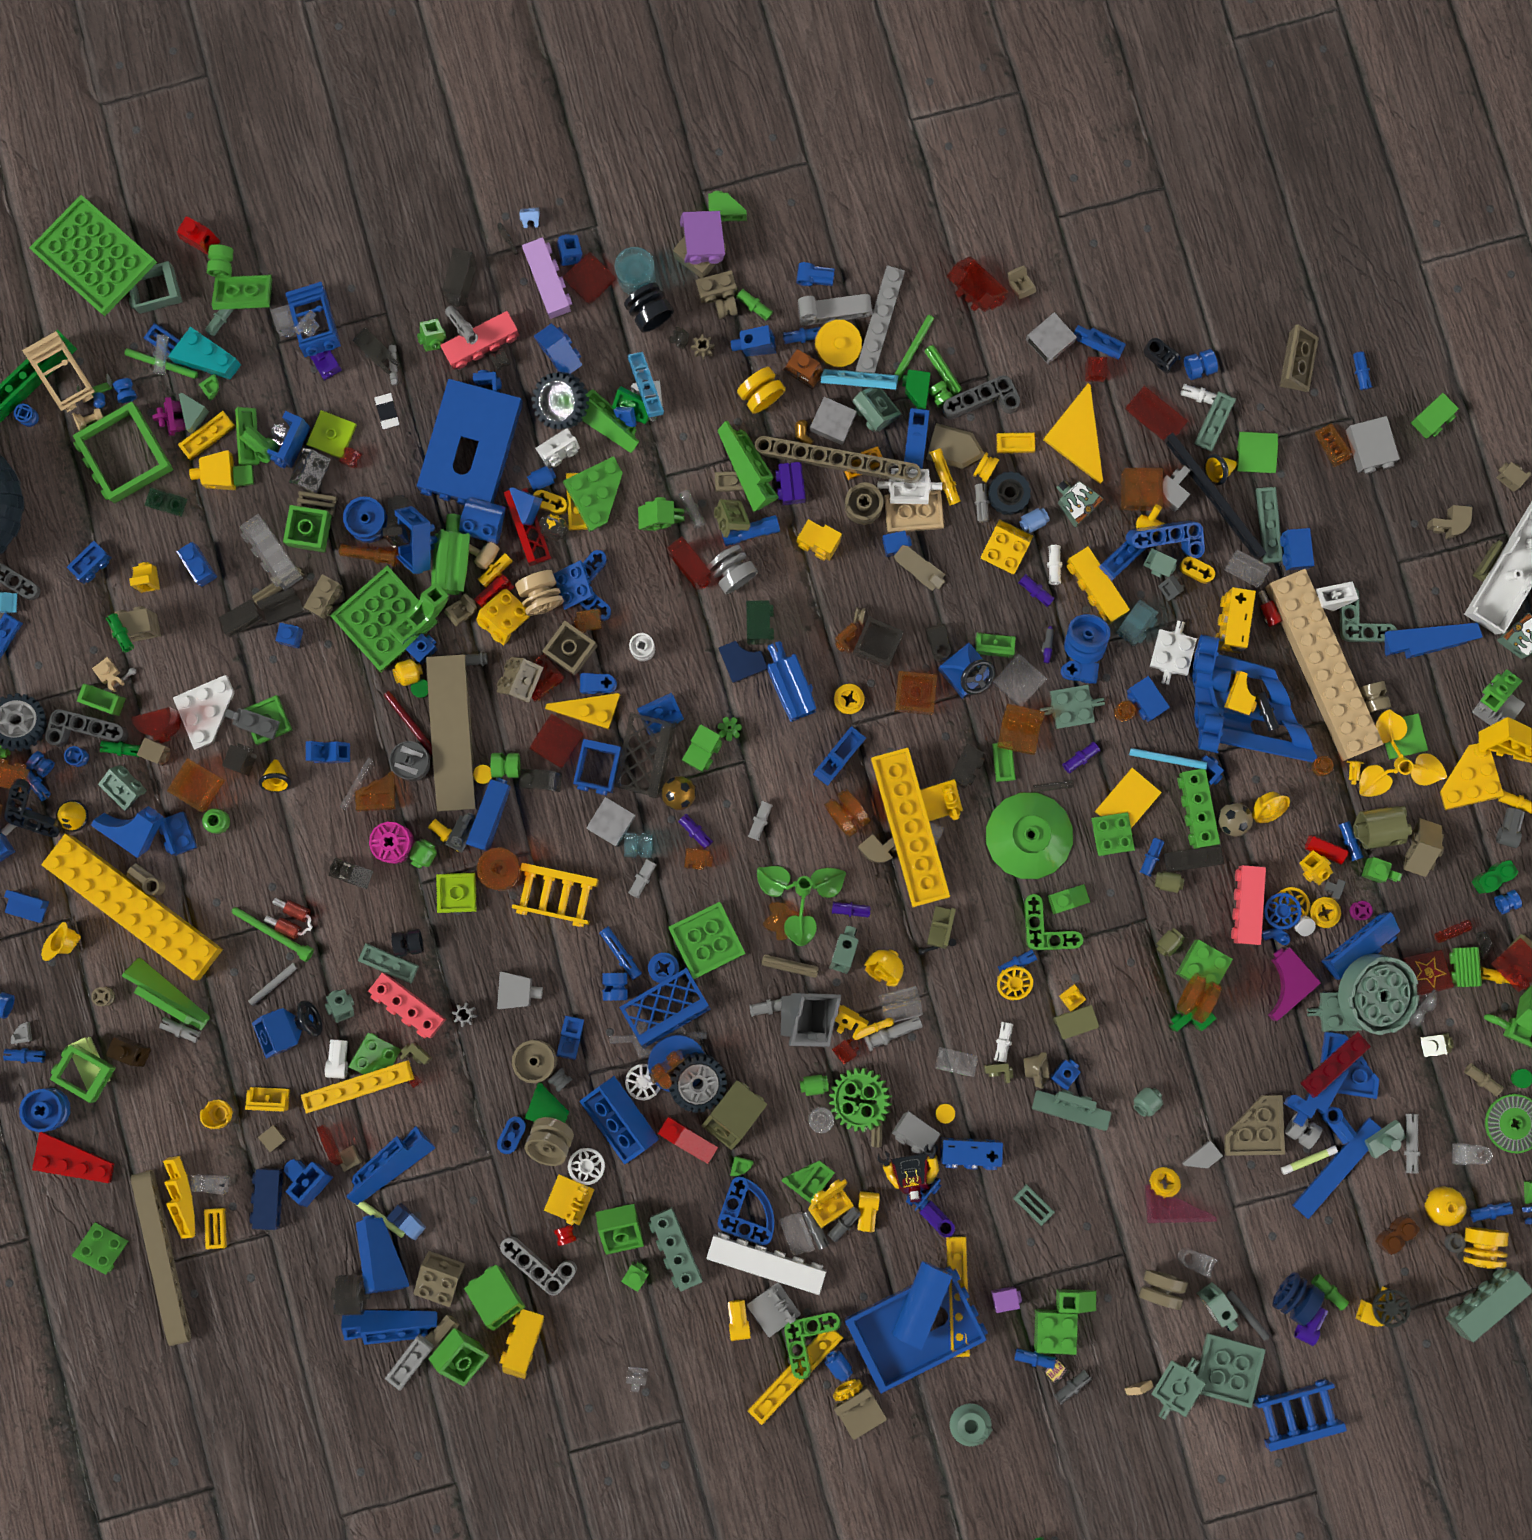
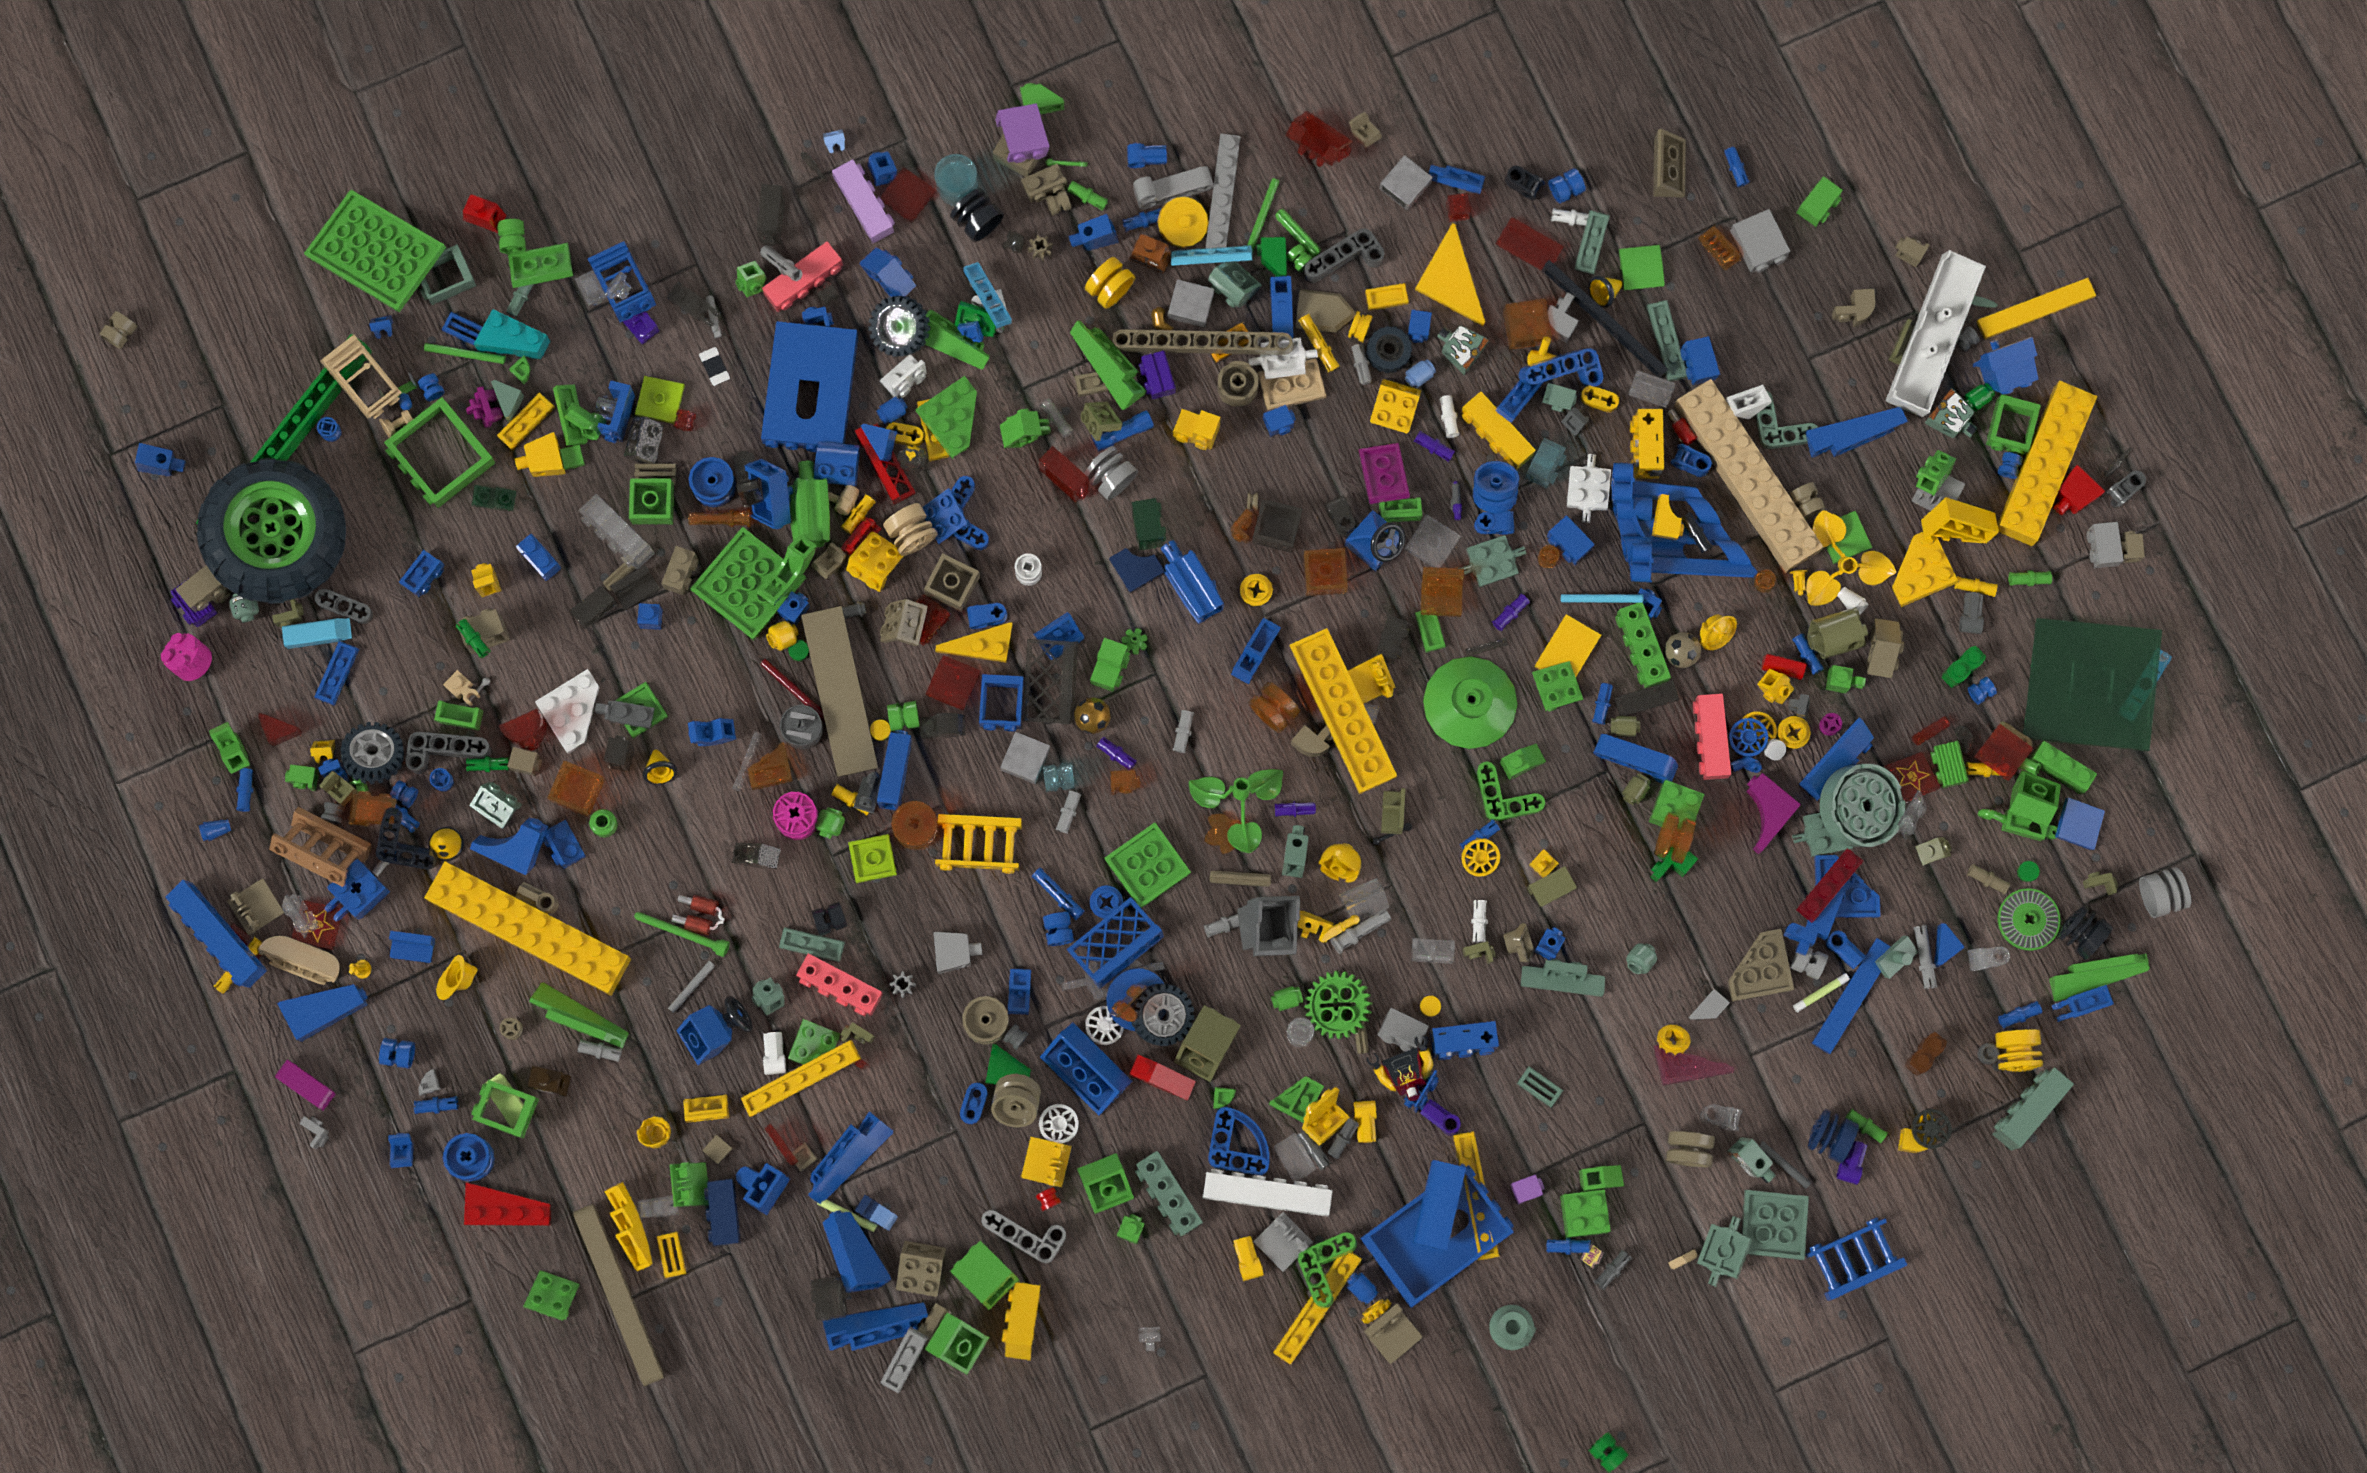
camera: 15 degrees left, 5 degrees down
(86, 324) = (381, 323): none -> blue tile
(161, 354) = (464, 343): clear pin -> none
(239, 1167) = (688, 1184): none -> bright green hinge
(588, 620) = (966, 550): clear orange bracket -> none
(724, 268) = (1049, 162): none -> bright green hinge
(845, 1051) = (1313, 957): clear red tile -> none
(920, 568) = (1311, 443): dark tan piece -> none
(985, 609) = (1384, 473): none -> magenta tile
(1041, 475) = (1419, 326): none -> blue brick
(1174, 913) = (1636, 757): none -> blue beam
(1271, 642) = (1690, 460): none -> blue piece
(1401, 797) = (1852, 600): none -> white cone
(1433, 1136) = (1946, 945): none -> blue slope
(1445, 1206) = (1971, 1017): yellow cylinder -> none

